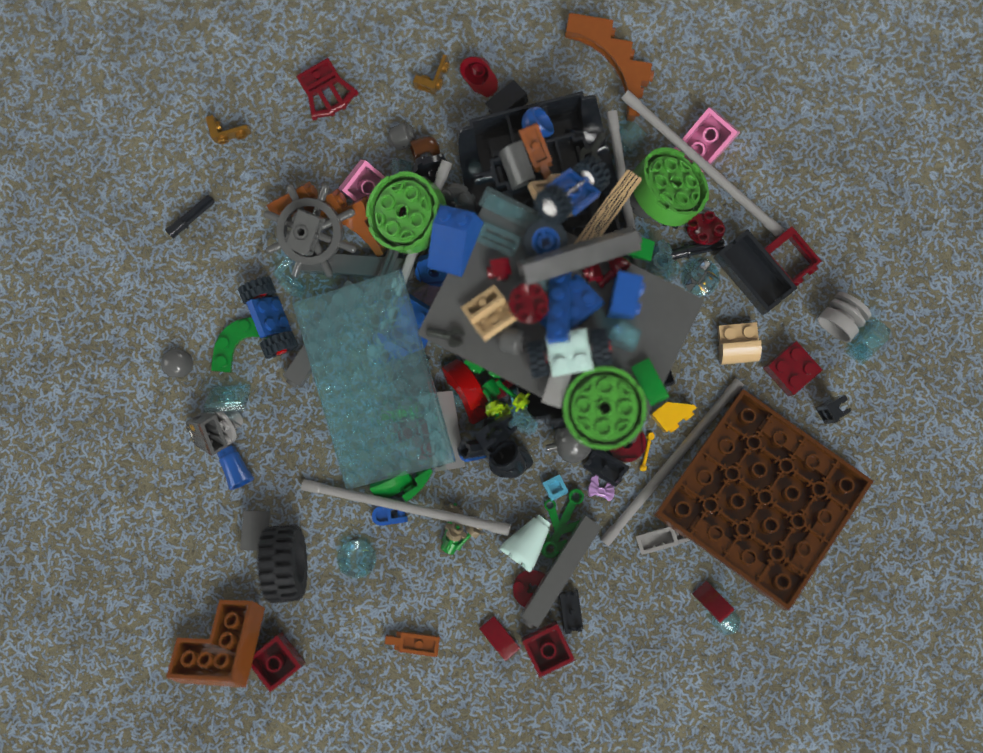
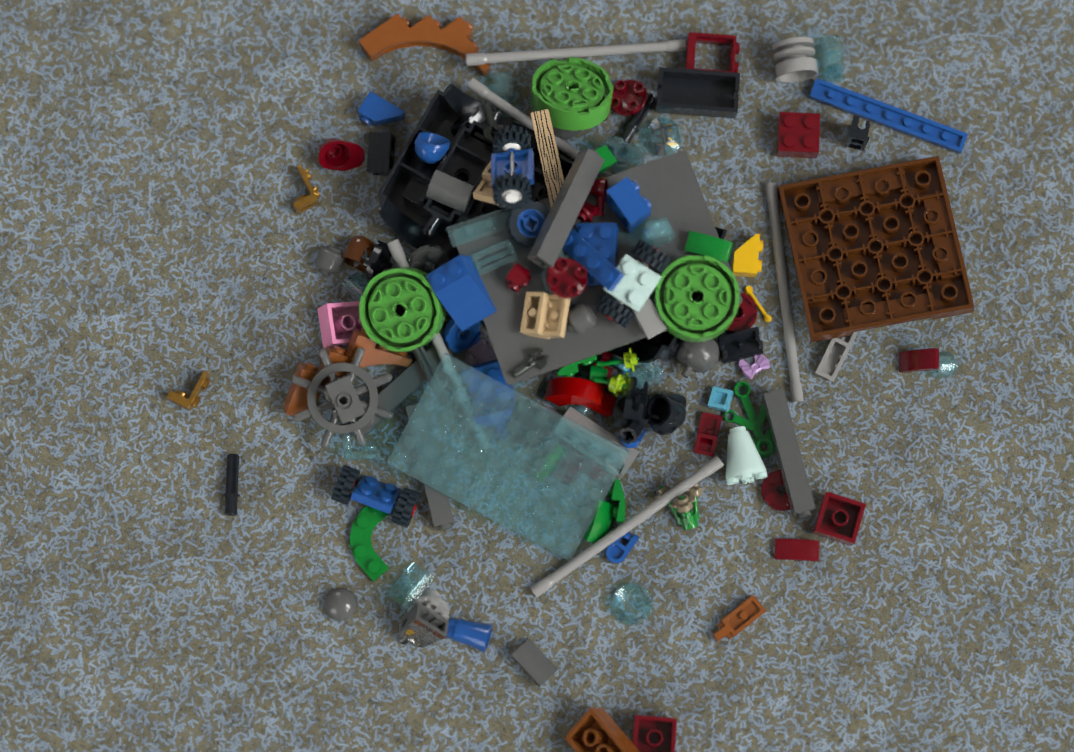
camera: 50 degrees left, 5 degrees down
(282, 563) = (584, 656): black tyre -> none
(319, 79) = (220, 279): dark red plate -> none
(523, 501) = (707, 434): none -> dark red slope
(534, 72) = (379, 111): none -> blue slope
(536, 149) = (453, 165): dark orange hinge -> none
(571, 611) = (826, 476): black hinge -> none
(710, 135) = (559, 26): bright pink slope -> none
(739, 343) = (740, 156): tan brick -> none
(867, 419) = (888, 116): none -> blue plate

